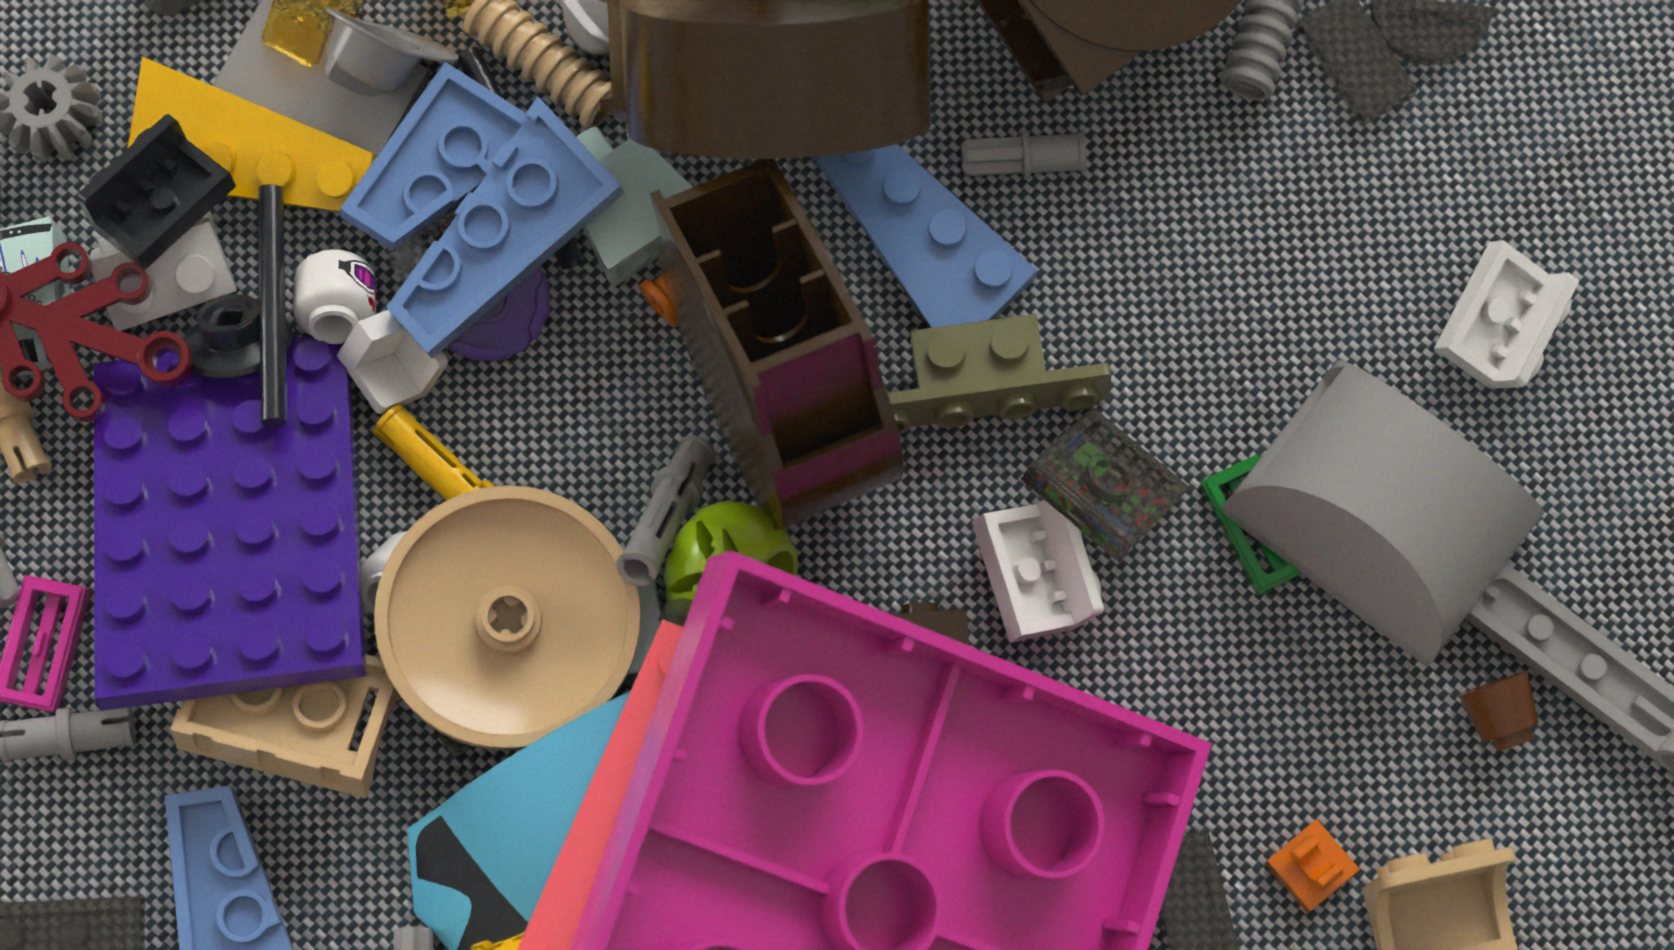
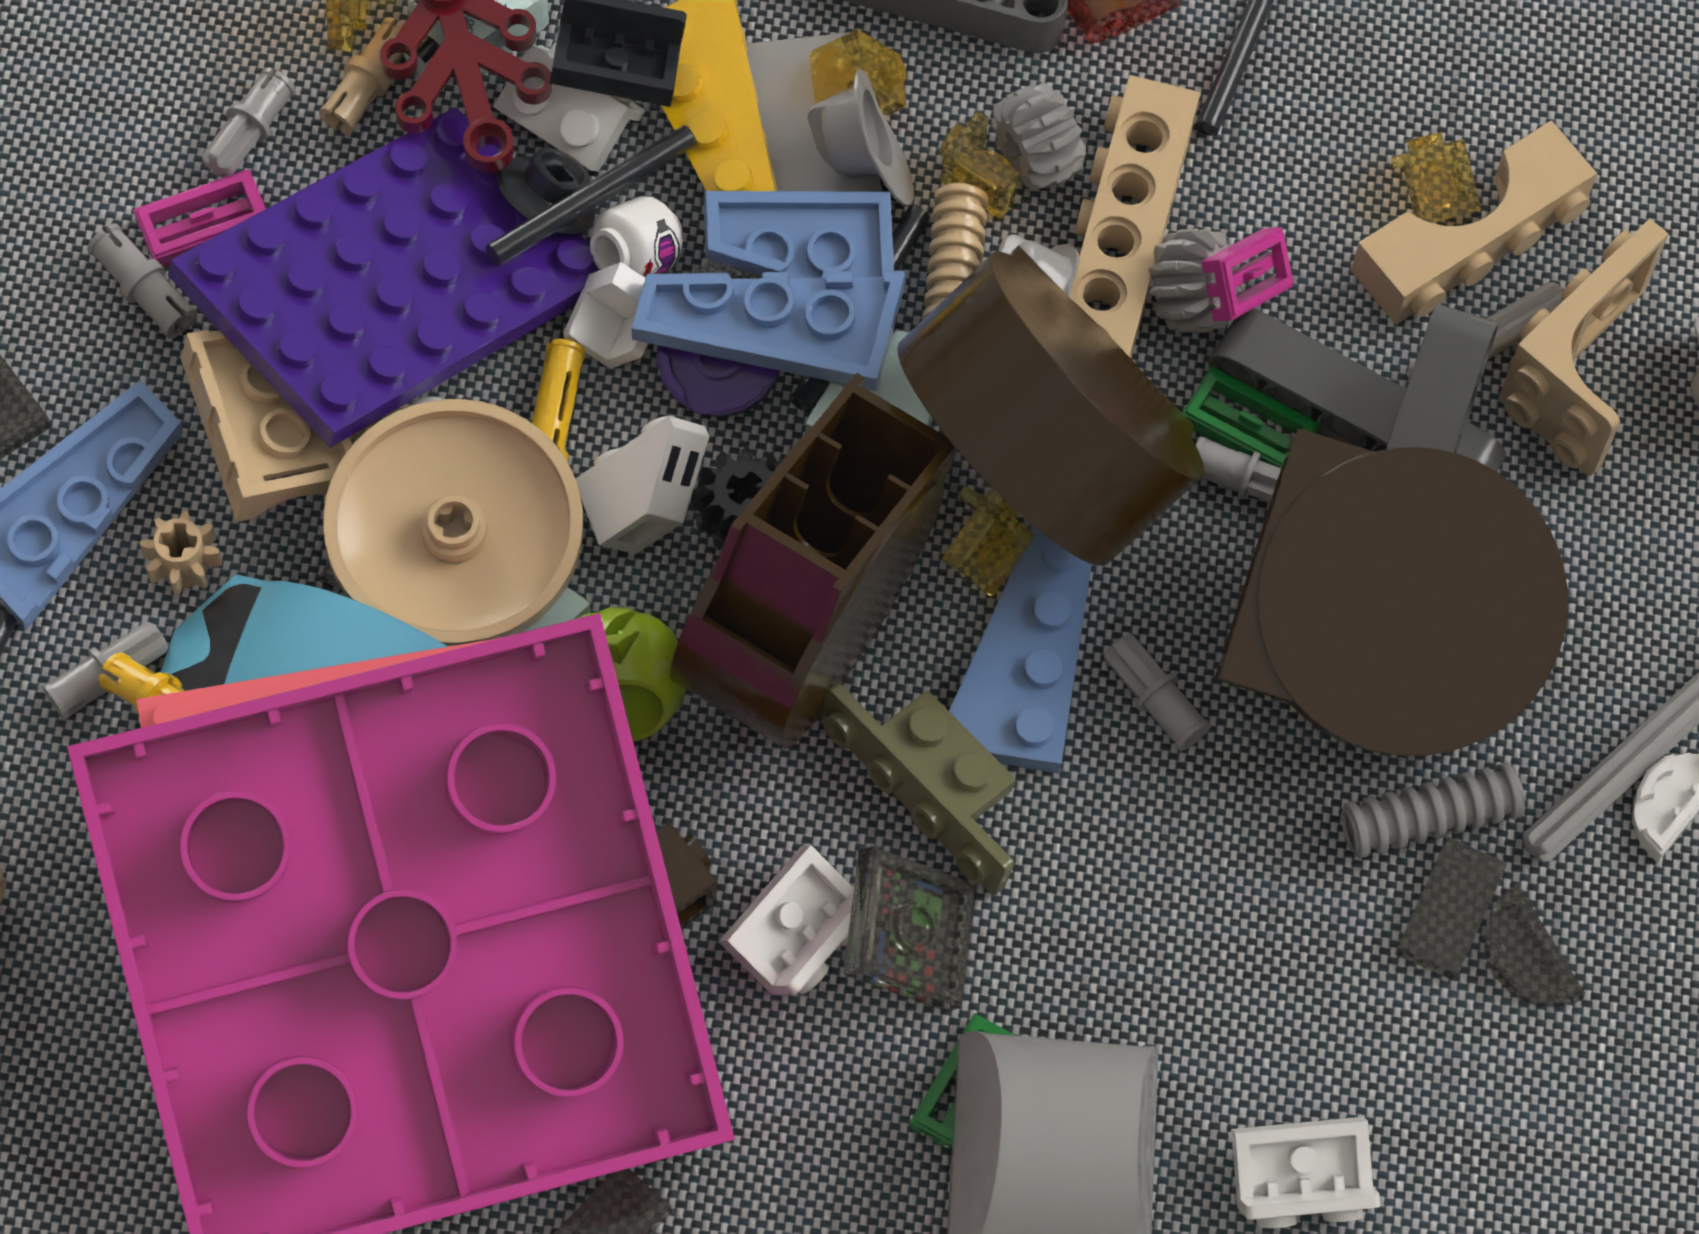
camera: 50 degrees right, 10 degrees down
(335, 867) = (166, 548): none -> tan gear
(571, 436) = (644, 486): none -> white slope
(614, 378) = (724, 486): none -> black gear
(674, 494) = (579, 590): light grey pin -> none
(817, 193) = (988, 542): none -> clear yellow bracket

